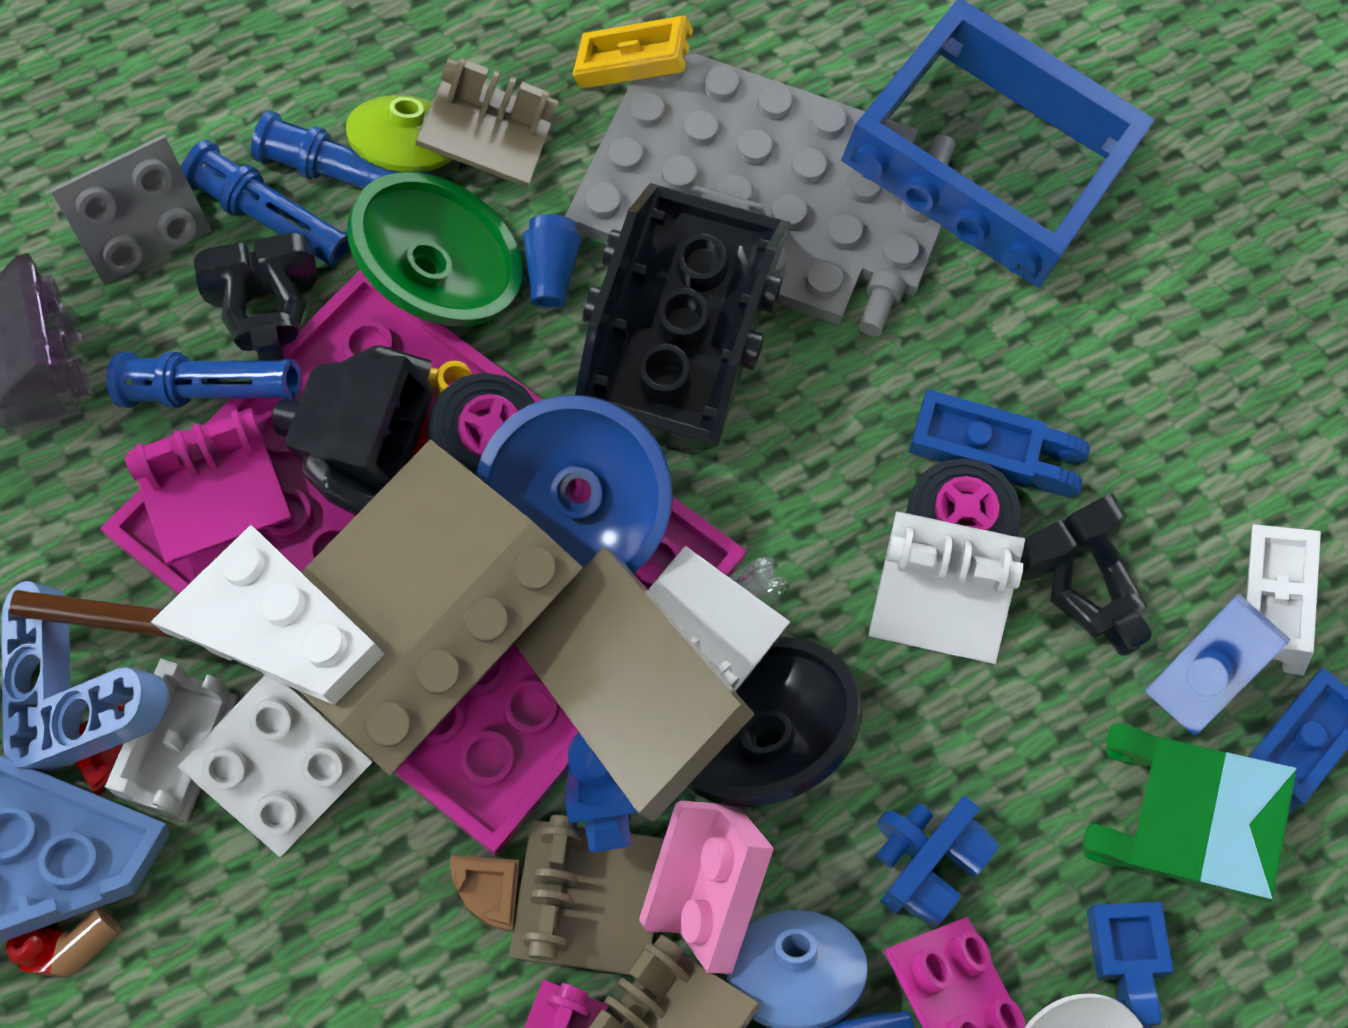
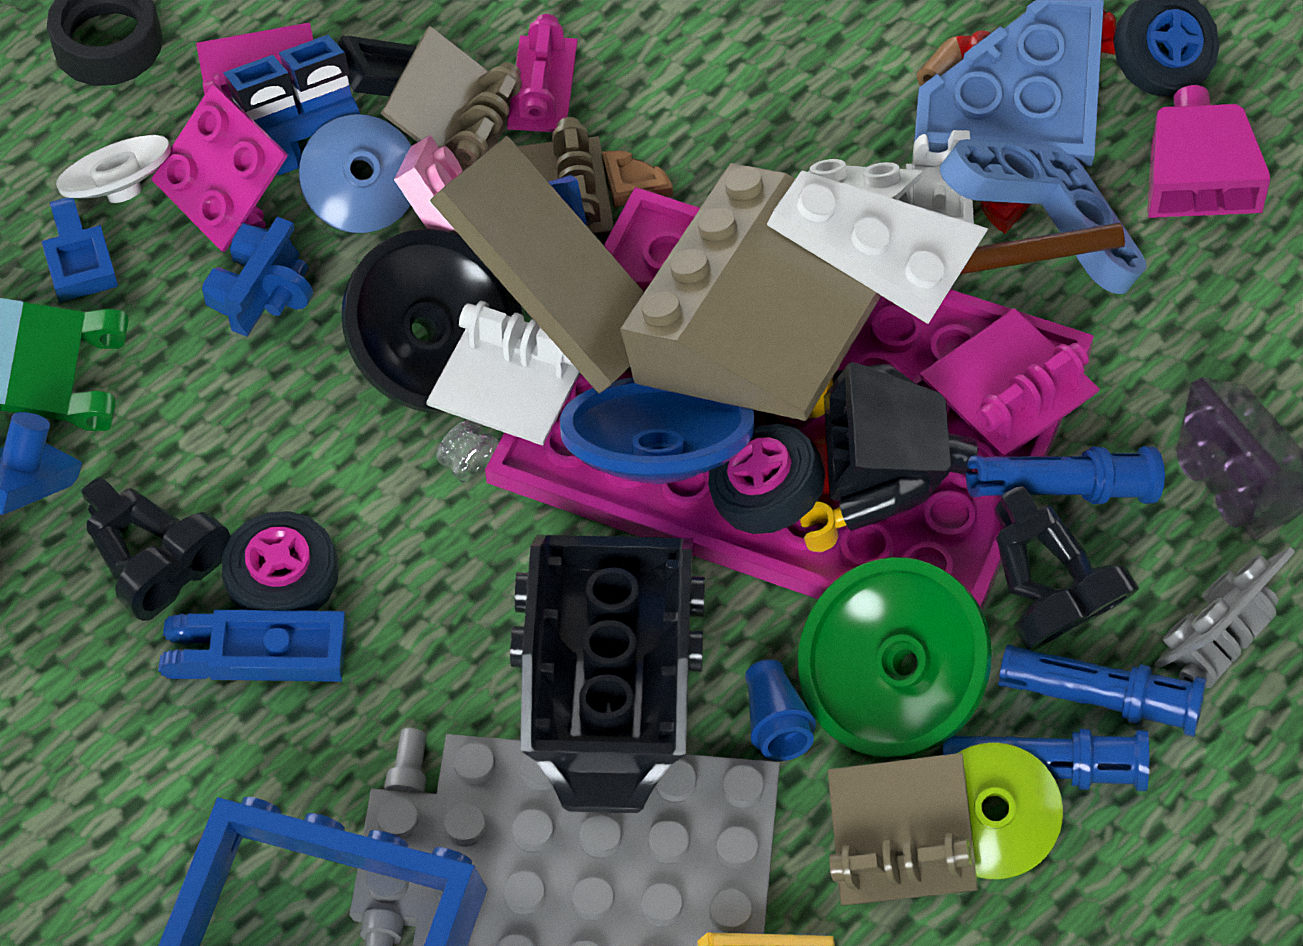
camera: 170 degrees right, 10 degrees down
(946, 587) = (289, 484): white hinge -> none

